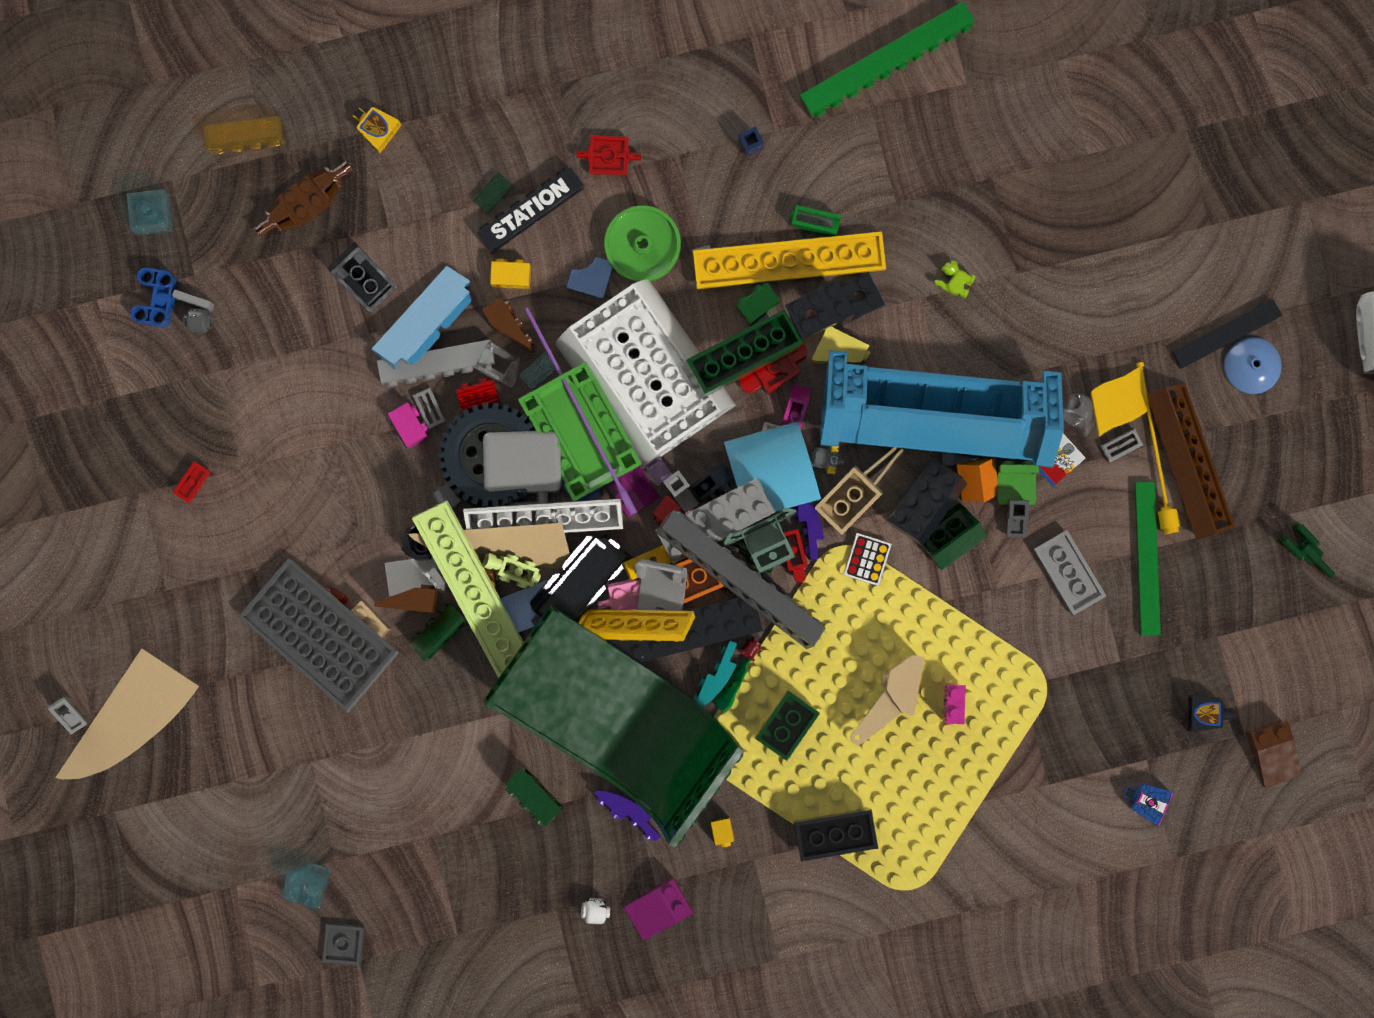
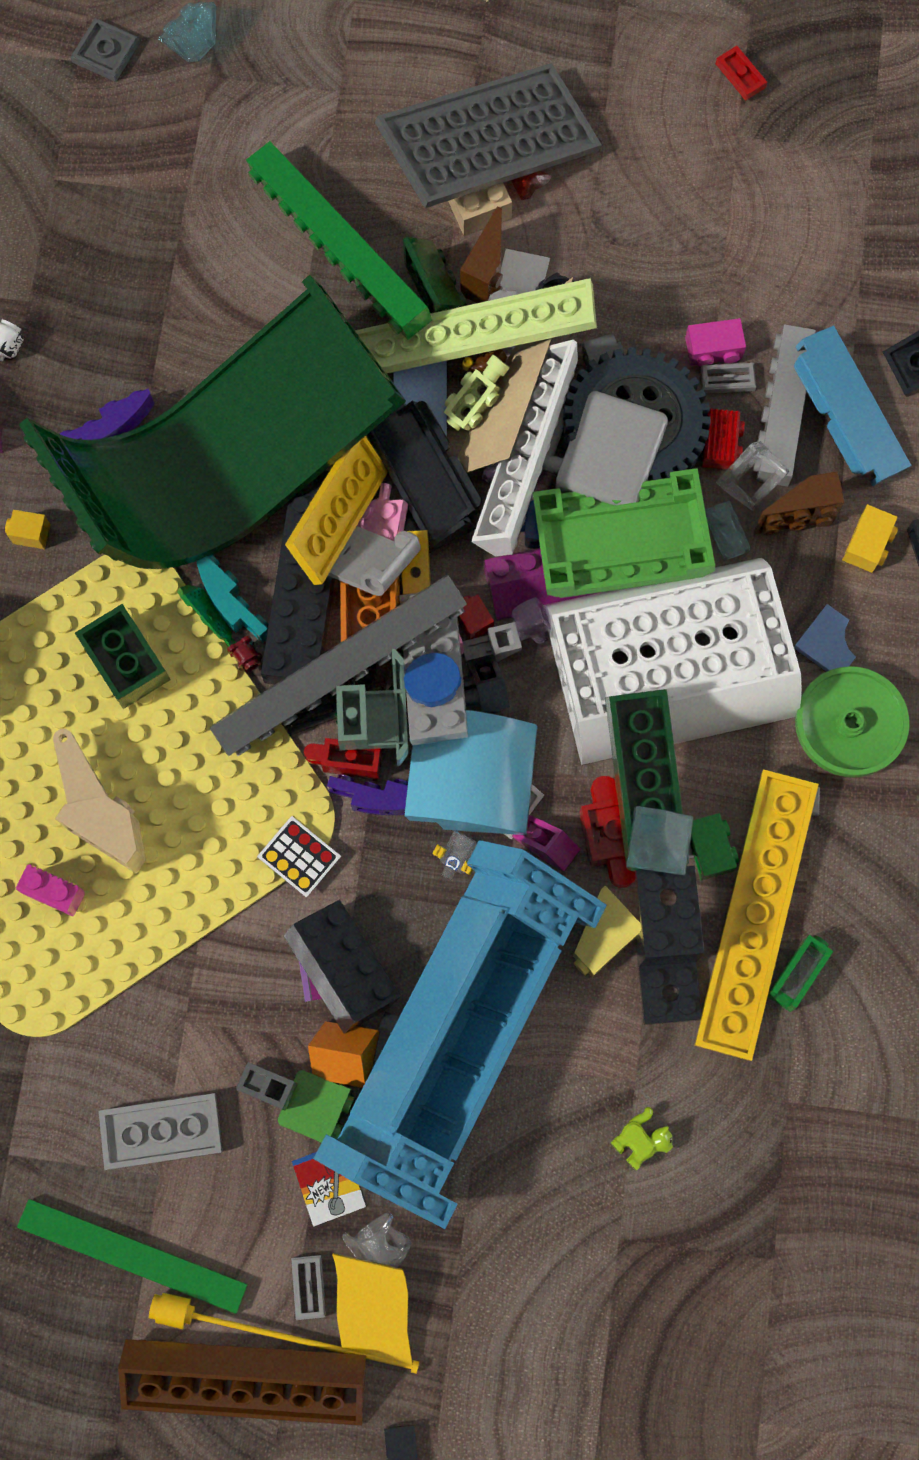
camera: 115 degrees right, 10 degrees down
(434, 711) = (339, 240): none -> green brick
(533, 797) = (177, 315): dark green brick -> none
(622, 492) = (517, 553): medium lavender piece -> none
(729, 513) = (432, 679): none -> blue tile
(781, 330) = (659, 840): none -> clear light blue slope
(853, 495) = (391, 863): tan slope -> none
(954, 536) = (279, 986): dark green slope -> none

